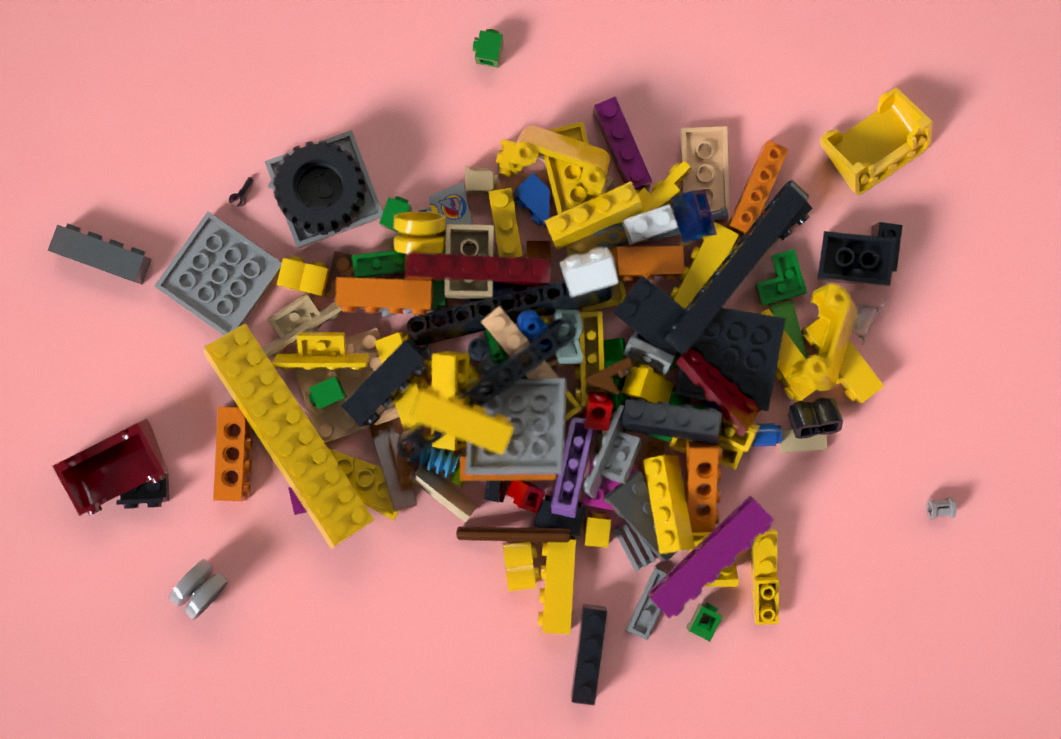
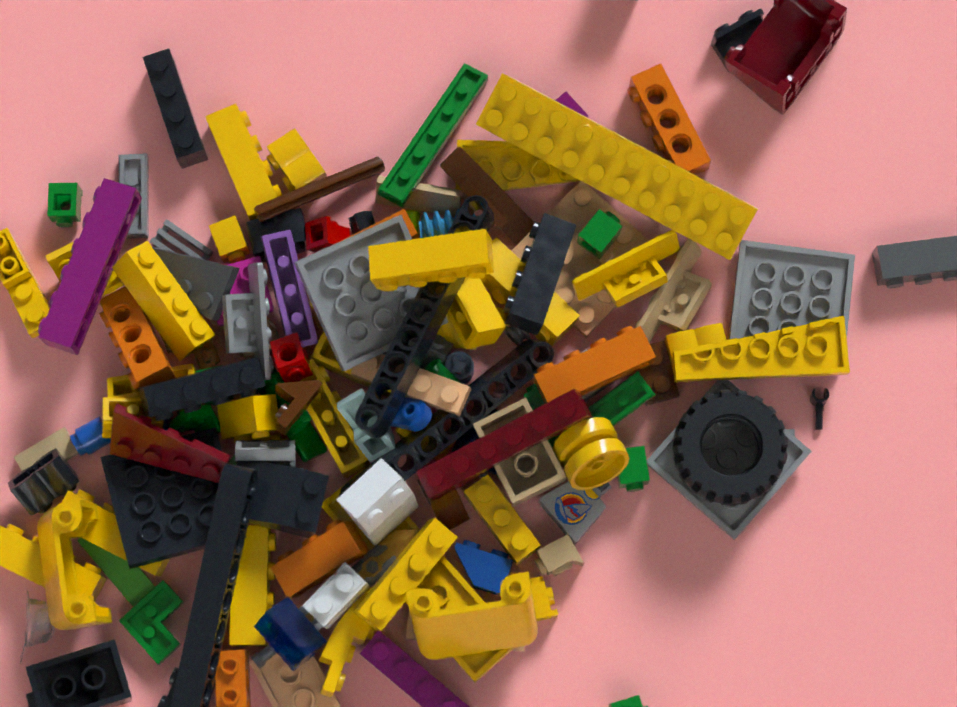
camera: 155 degrees right, 10 degrees down
(238, 236) = (789, 352): none -> yellow wing
(409, 533) = (432, 135): none -> green tile

